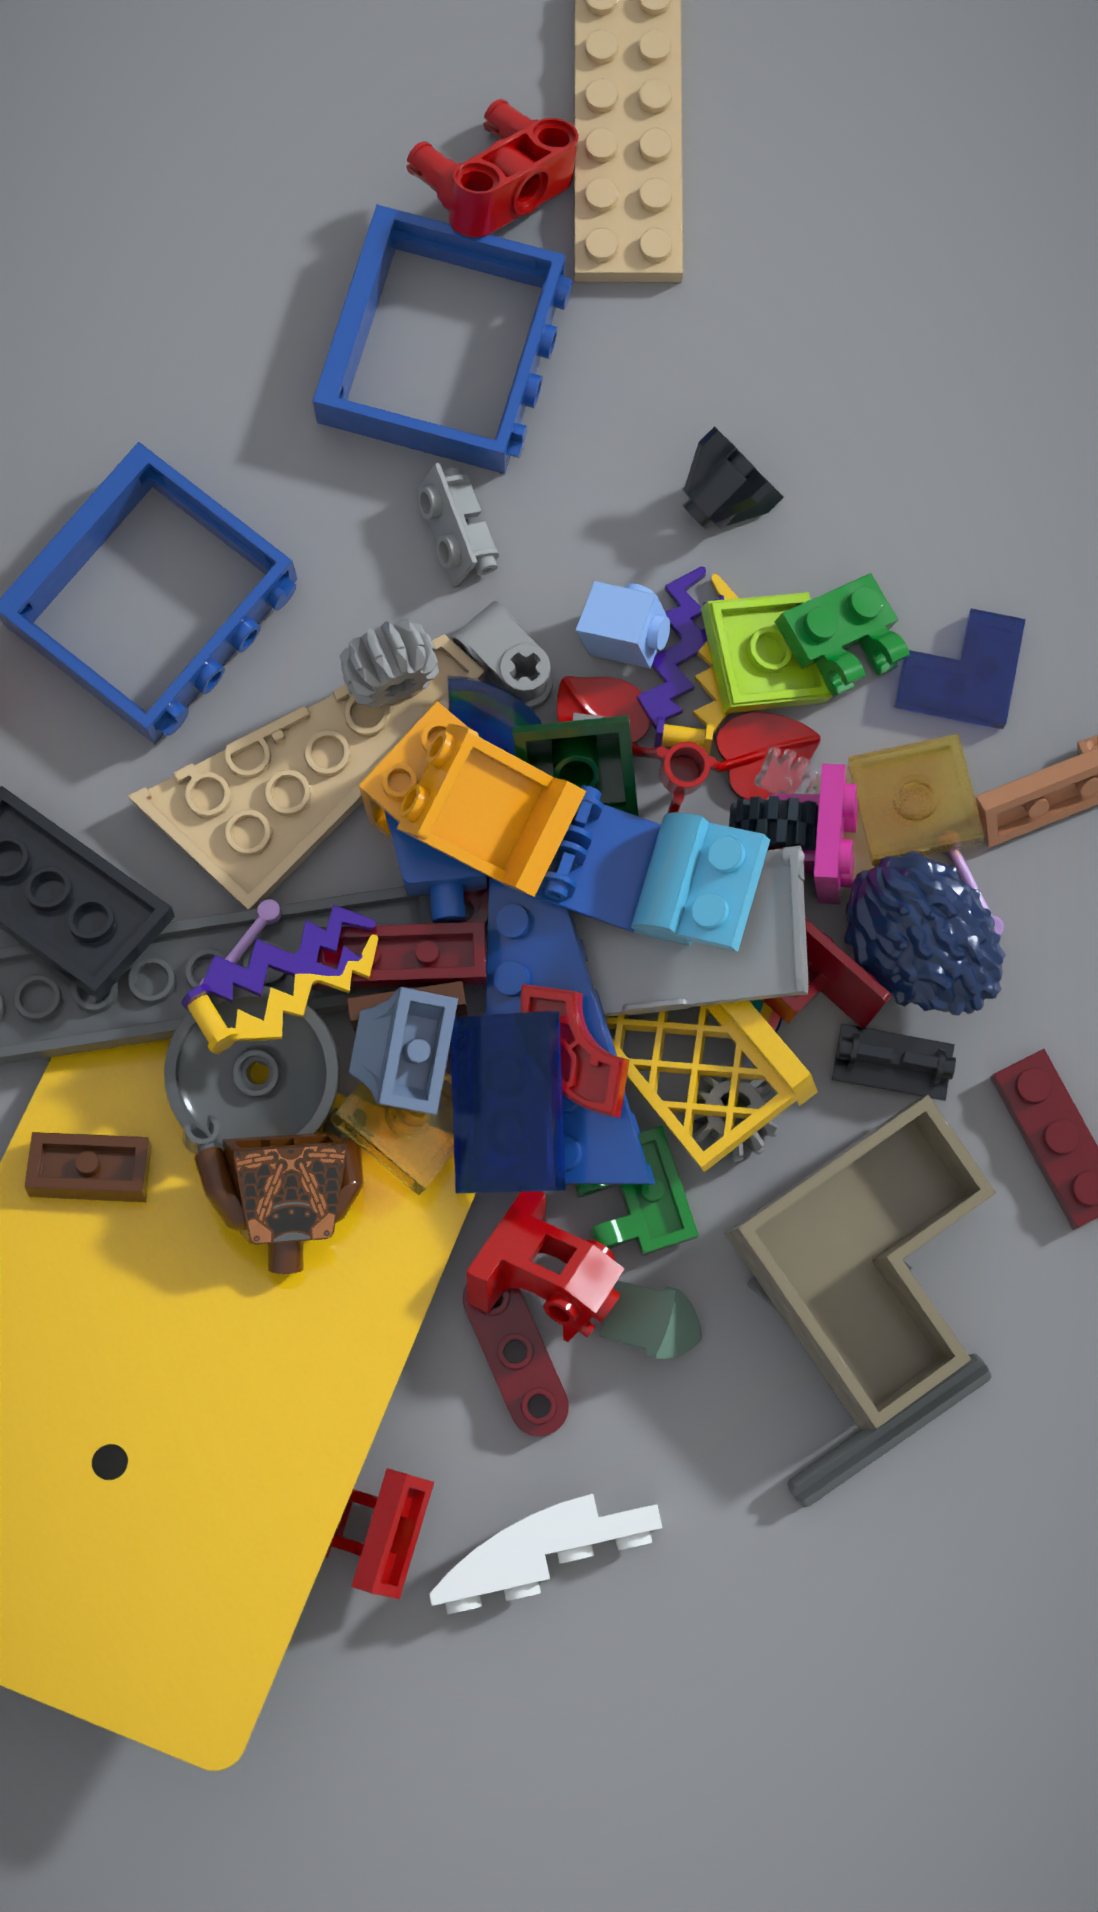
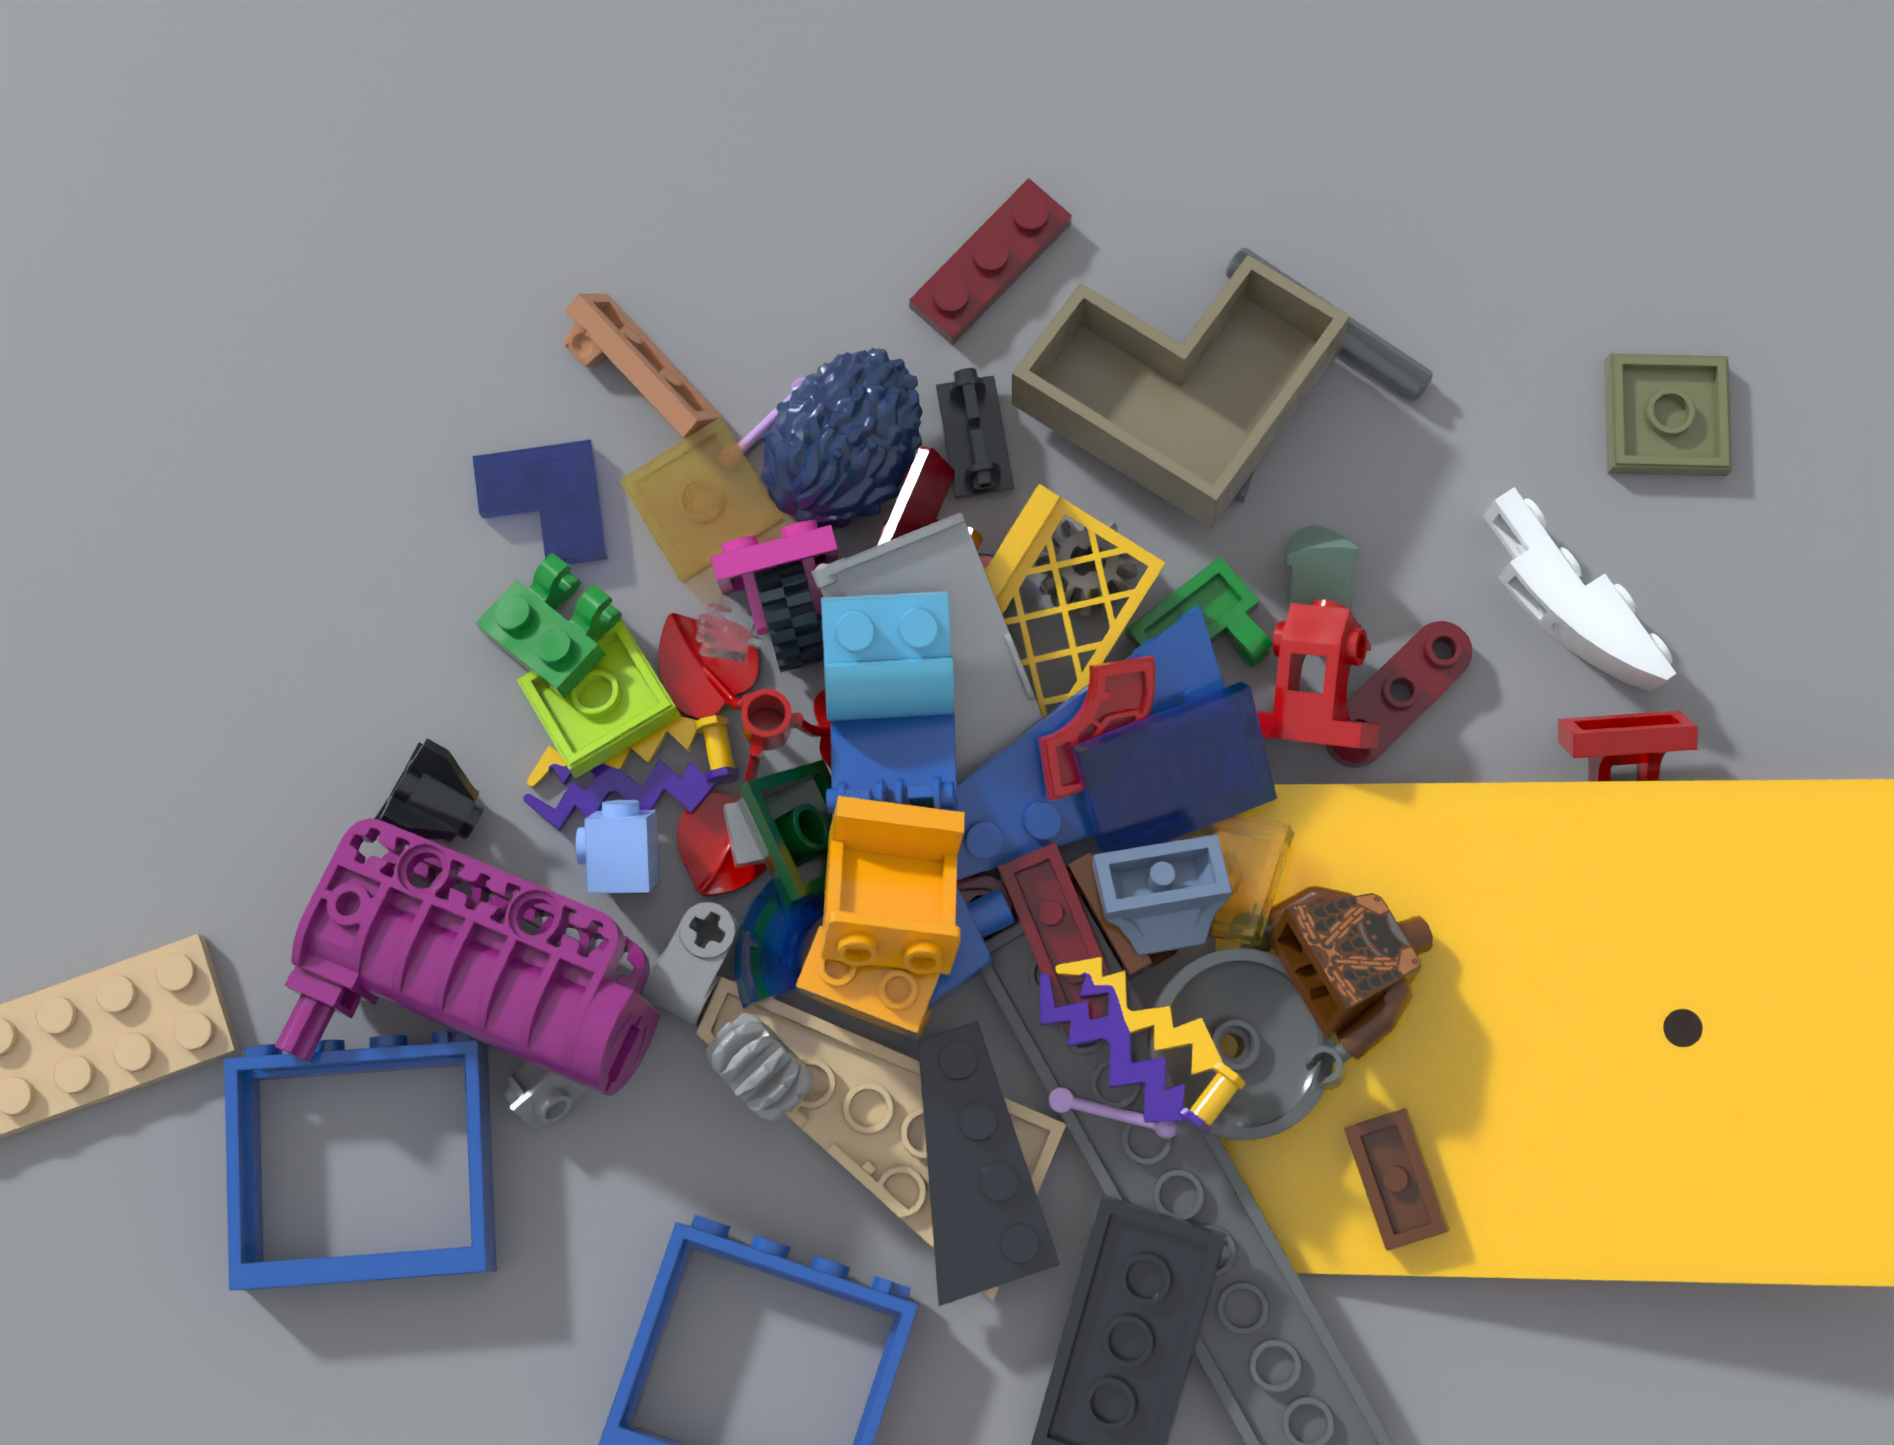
camera: 110 degrees left, 0 degrees up
(227, 816) = (979, 1184): none -> black wing
(506, 179) = (147, 1153): red piece -> none
(560, 461) = (462, 968): none -> magenta piece
(688, 1722) = (1668, 414): none -> olive tile

